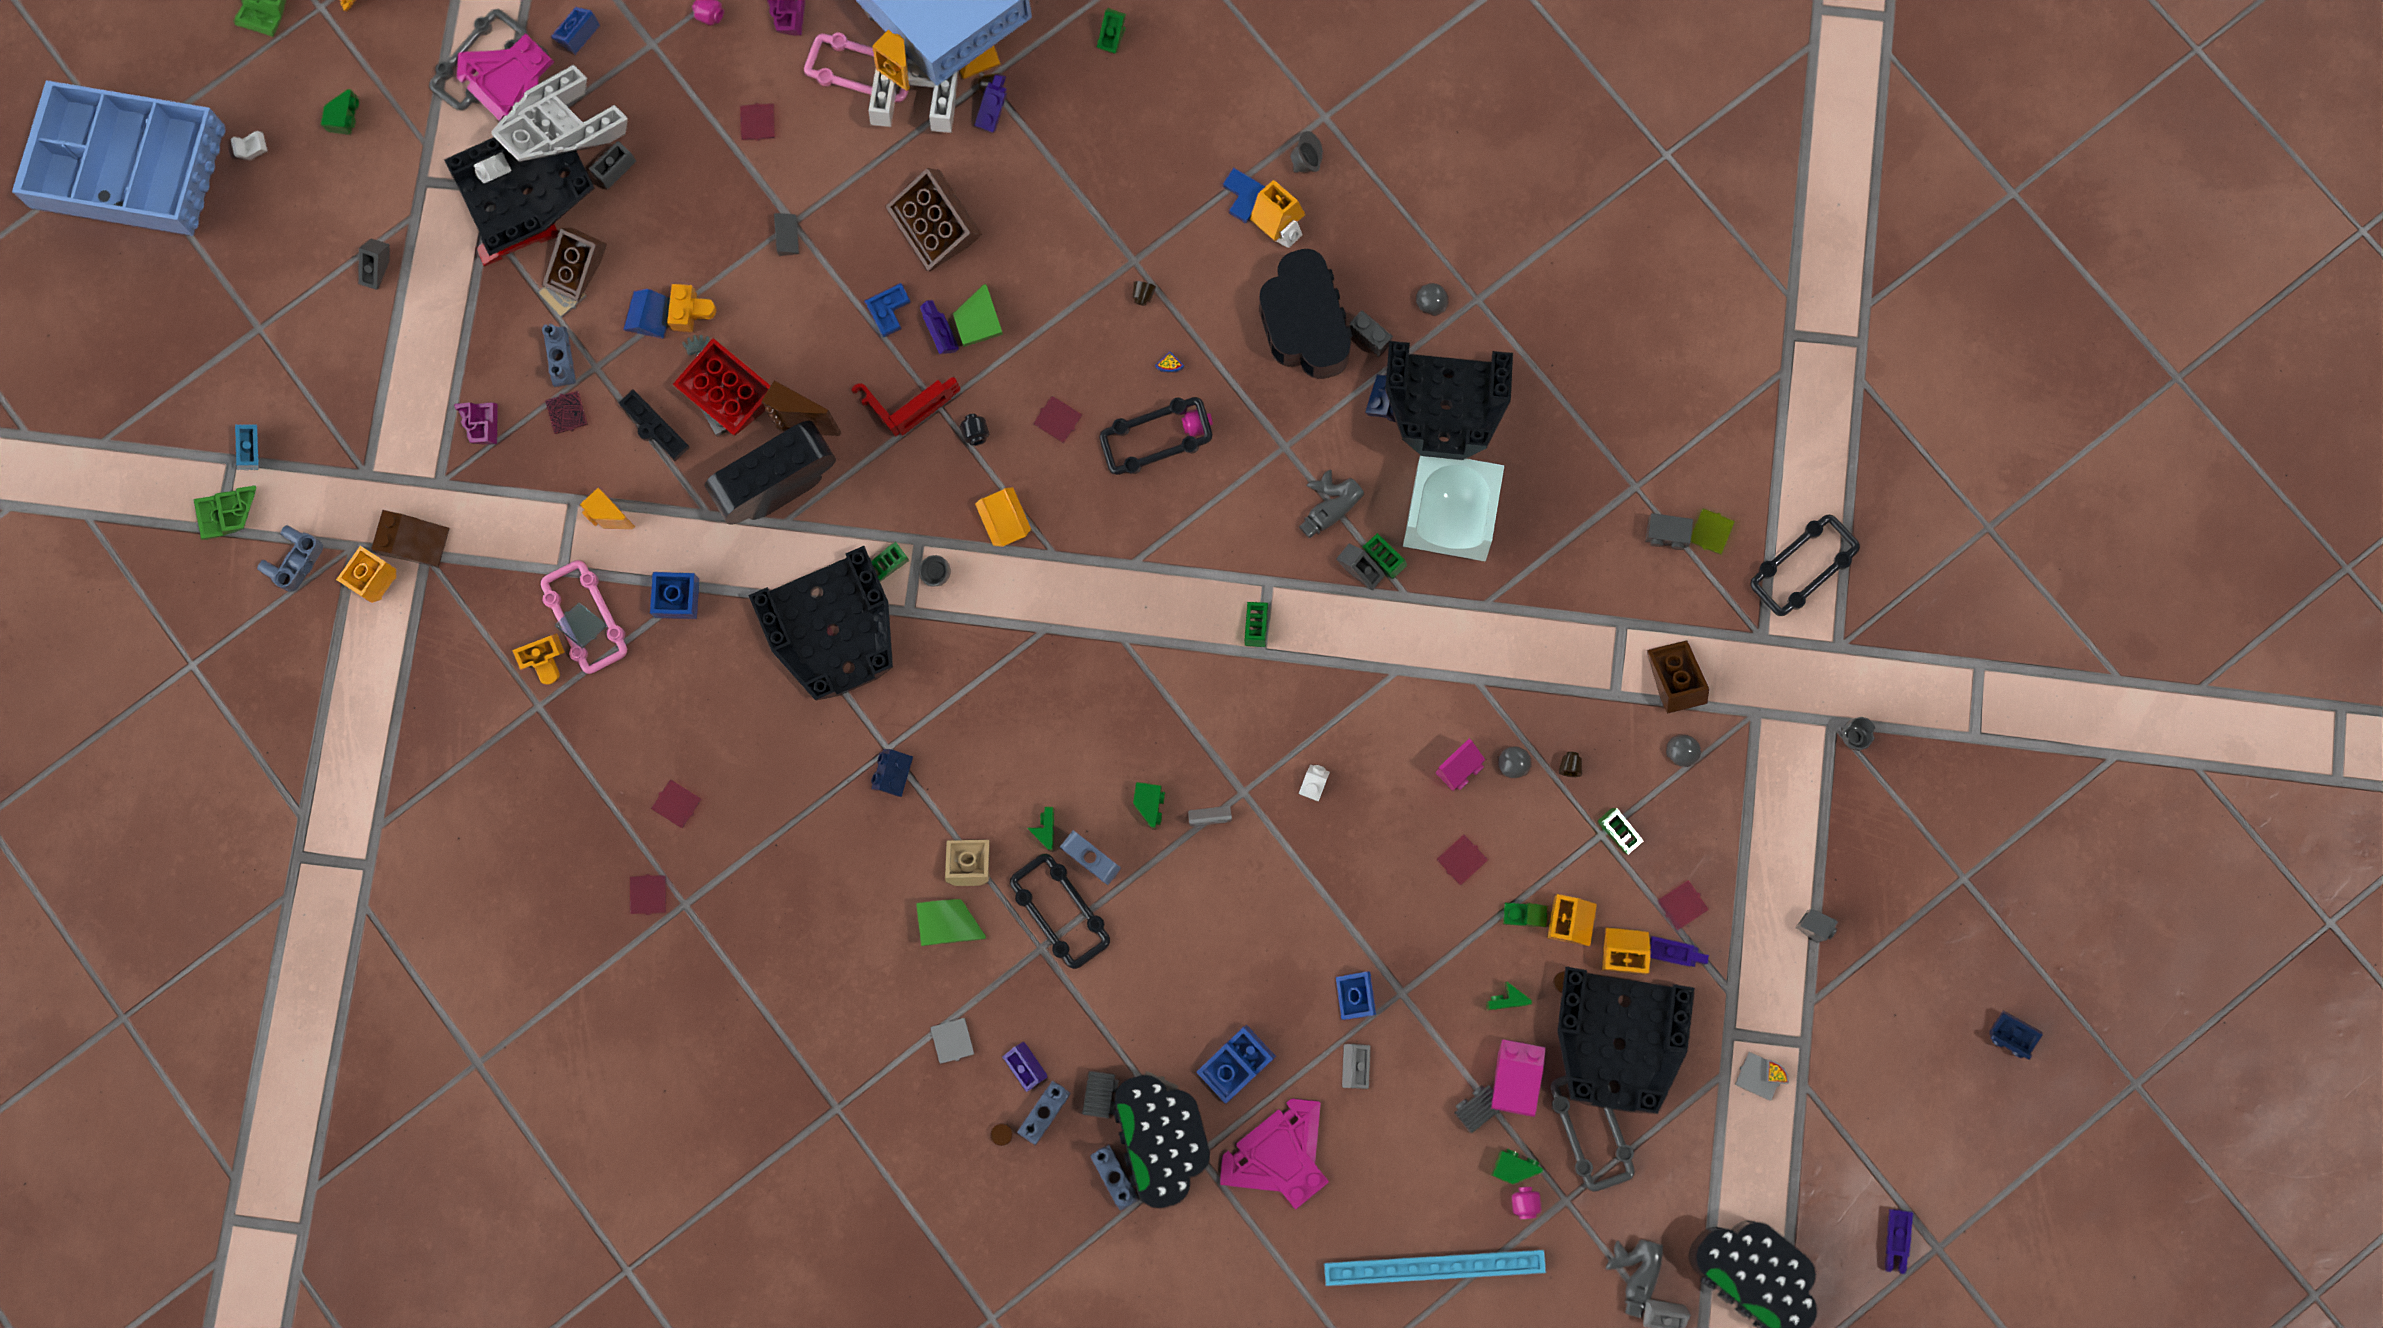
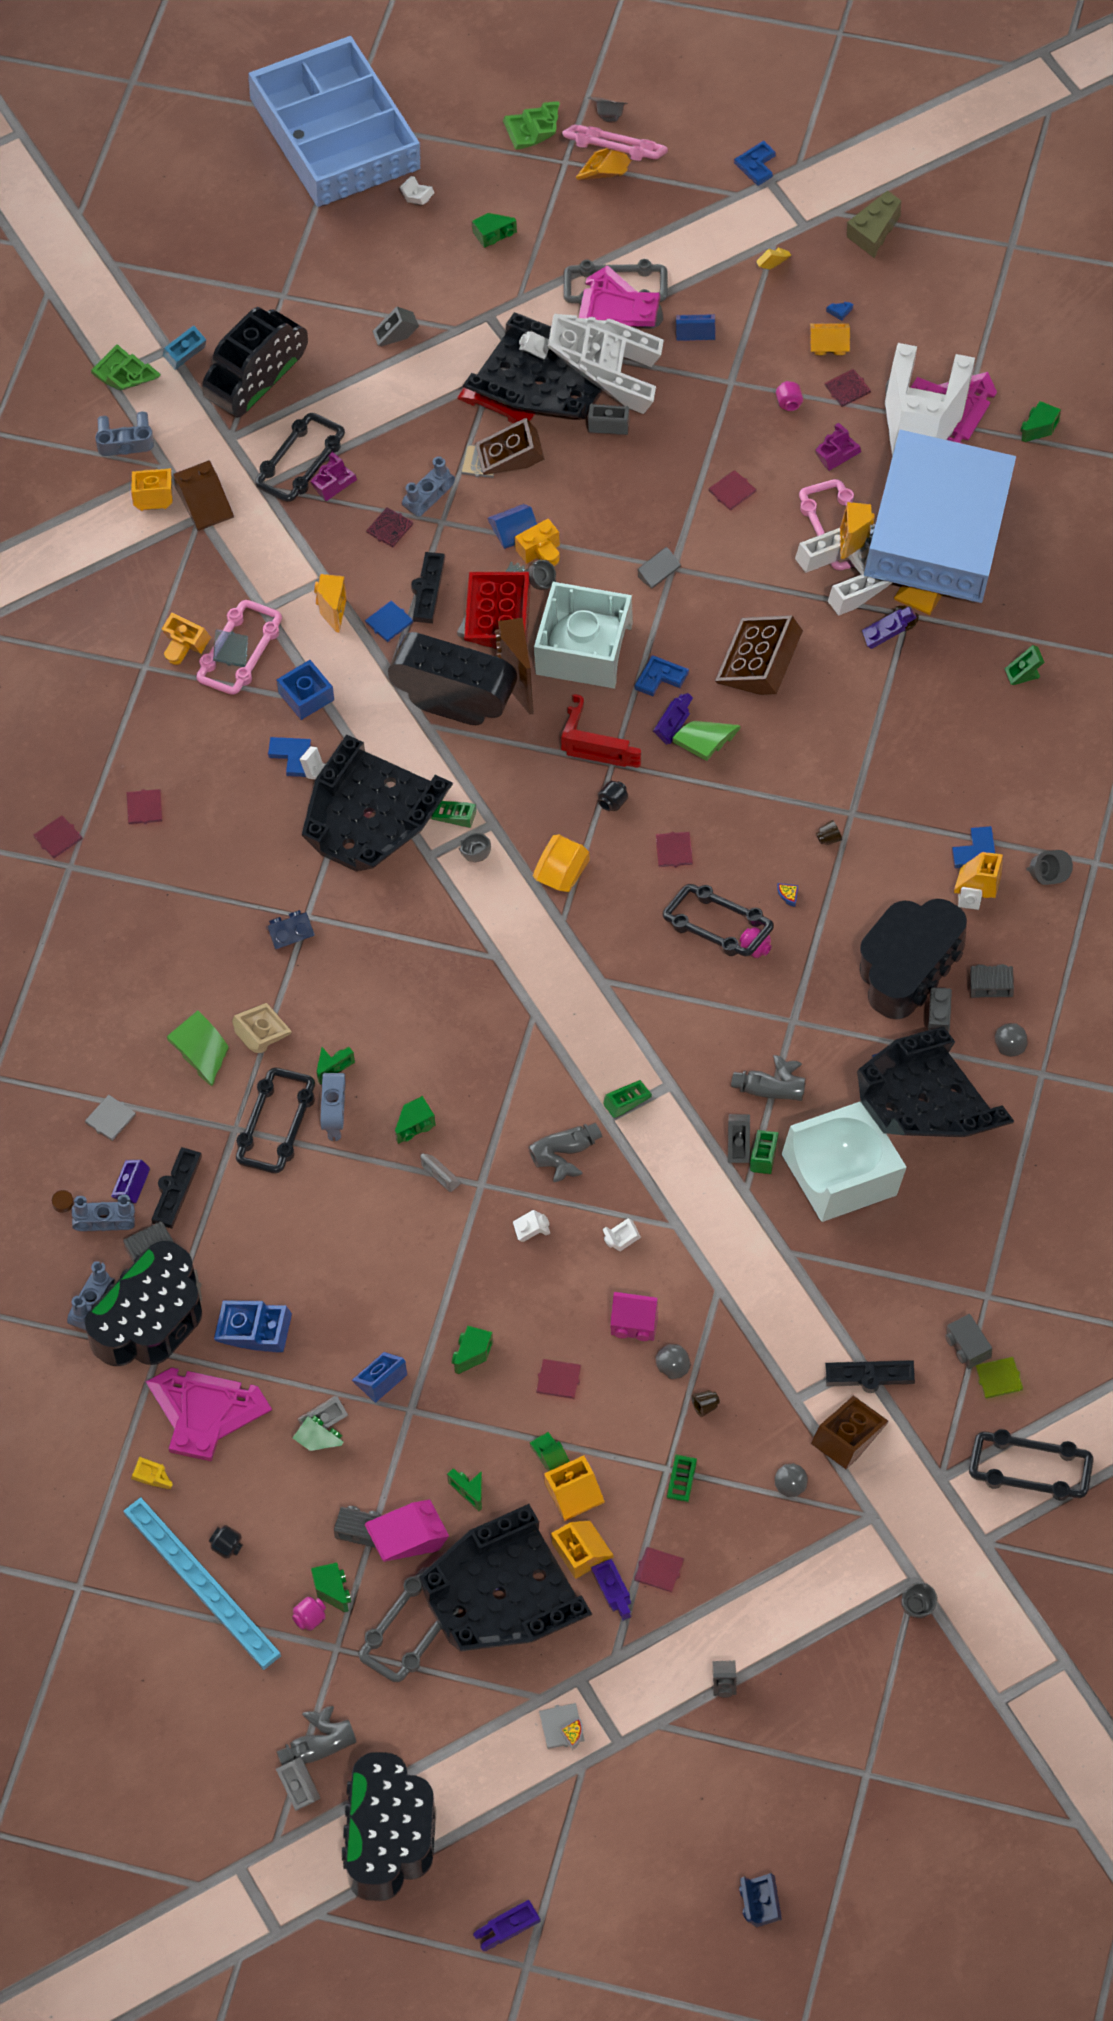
camera: 50 degrees right, 20 degrees down
(313, 402) = (253, 359): none -> black brick
(408, 414) = (300, 483): none -> black bar
(658, 479) = (389, 621): none -> blue piece
(719, 328) = (542, 574): none -> dark grey hair
(724, 644) = (292, 750): none -> blue tile
(752, 641) = (312, 763): none -> white bracket
(808, 339) = (582, 634): none -> light aqua piece
(1061, 1035) = (175, 1187): none -> black hinge
(1260, 700) = (567, 1141): none -> dark grey piece
(1305, 1238) = (151, 1474): none -> yellow slope
(1372, 274) = (991, 981): none -> dark grey brick
(1376, 1086) = (315, 1436): none -> slope
(1377, 719) = (621, 1235): none -> white bracket
(1390, 907) = (473, 1349): none -> green slope
(1414, 1223) = (226, 1541): none -> black head
(1639, 624) = (870, 1374): none -> black hinge

